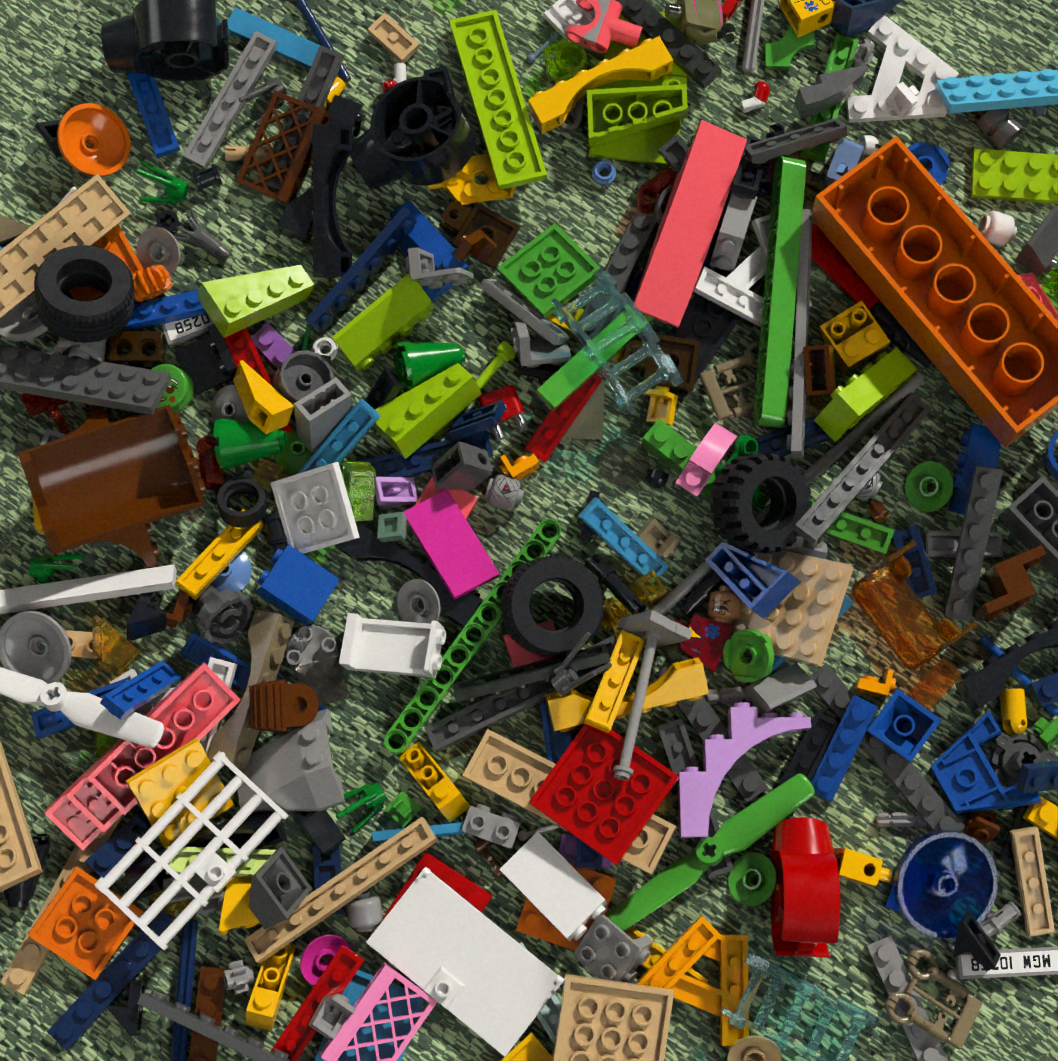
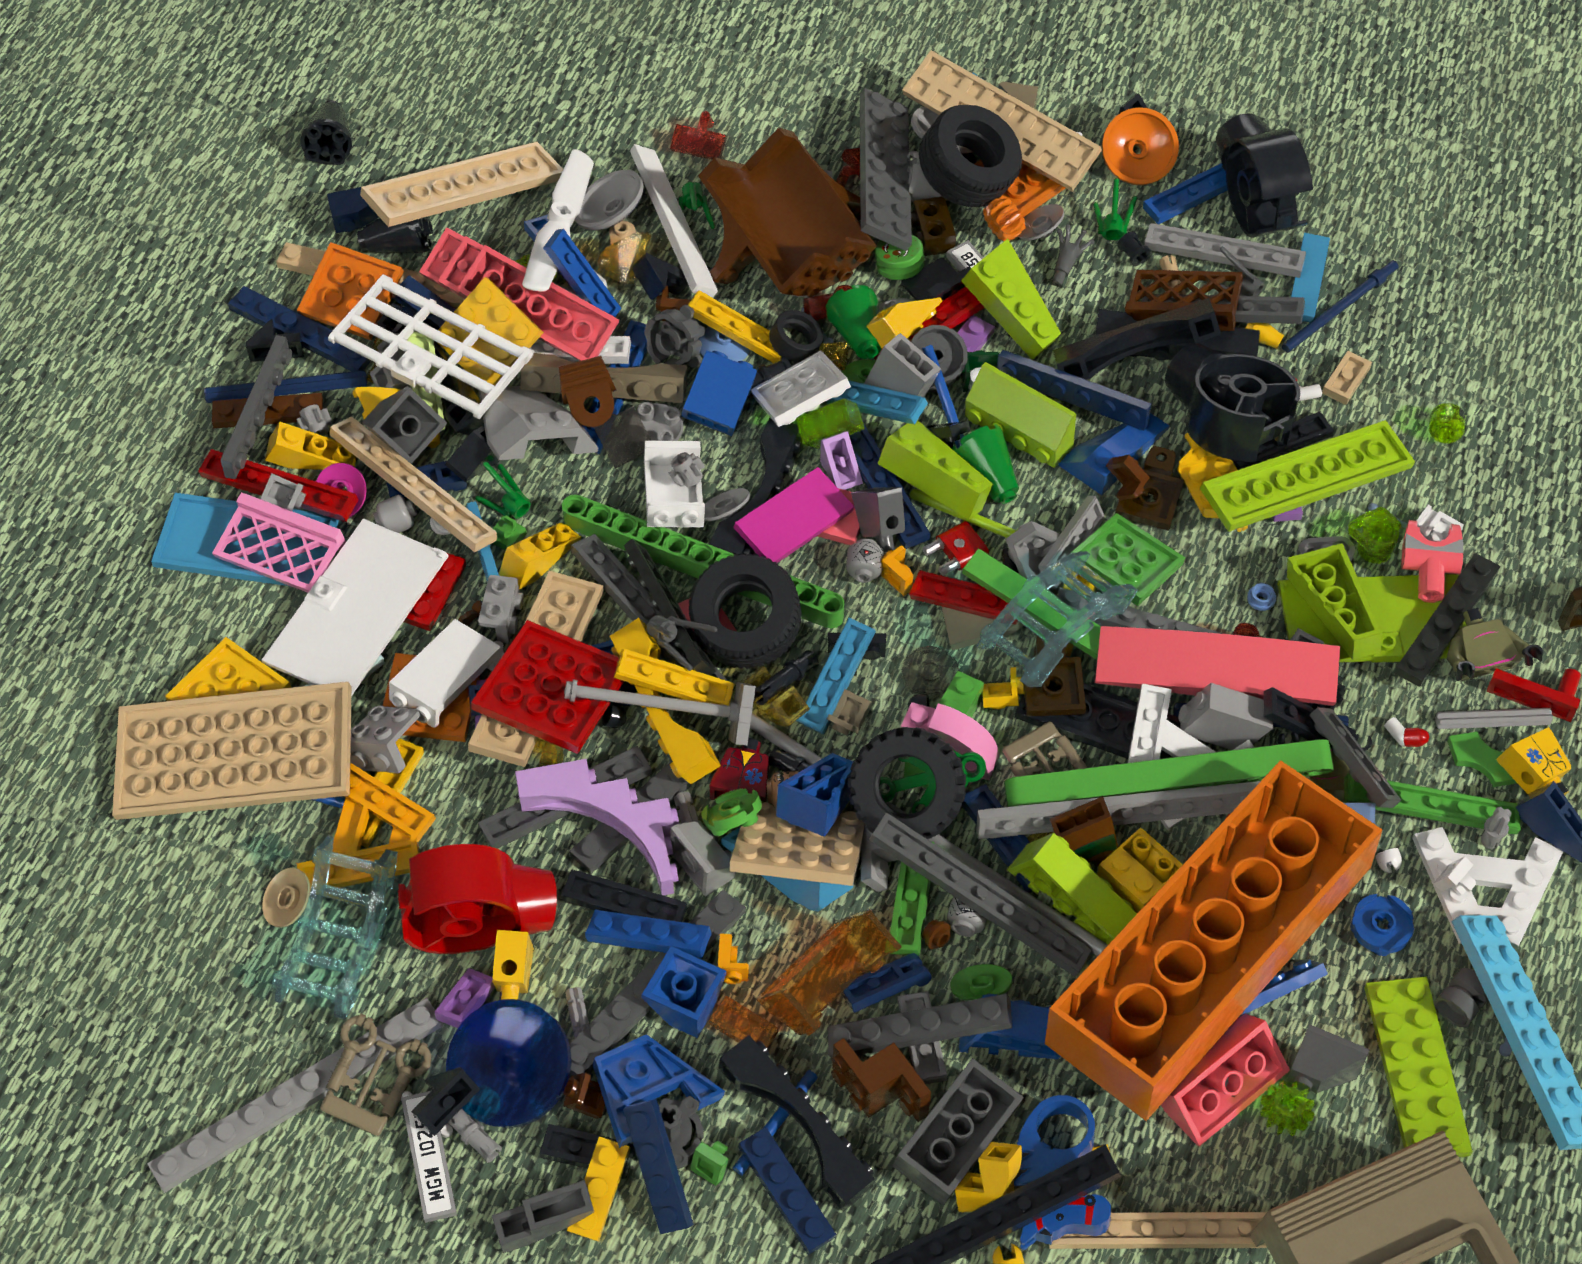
camera: 80 degrees right, 20 degrees down
(163, 217) = (1079, 222): black bush -> none
(165, 310) = (973, 229): blue plate -> none
(347, 382) = (943, 392): none -> blue bar
(381, 630) = (686, 469): none -> light grey gear
(392, 527) = (798, 460): sand green tile -> none
(422, 270) = (1086, 429): light grey bracket -> none
(477, 420) = (935, 517): dark blue plate -> none
(643, 63) = (1320, 528): yellow arch -> none
(732, 837) = (523, 832): bright green piece -> none
(828, 91) = (1434, 790): dark grey slope -> none
(876, 912) = (464, 998): none -> medium lavender plate
(997, 228) = (1330, 1012): white head -> none
(1013, 711) = (728, 1116): yellow piece -> none
(1032, 881) = (527, 1162): tan tile -> none

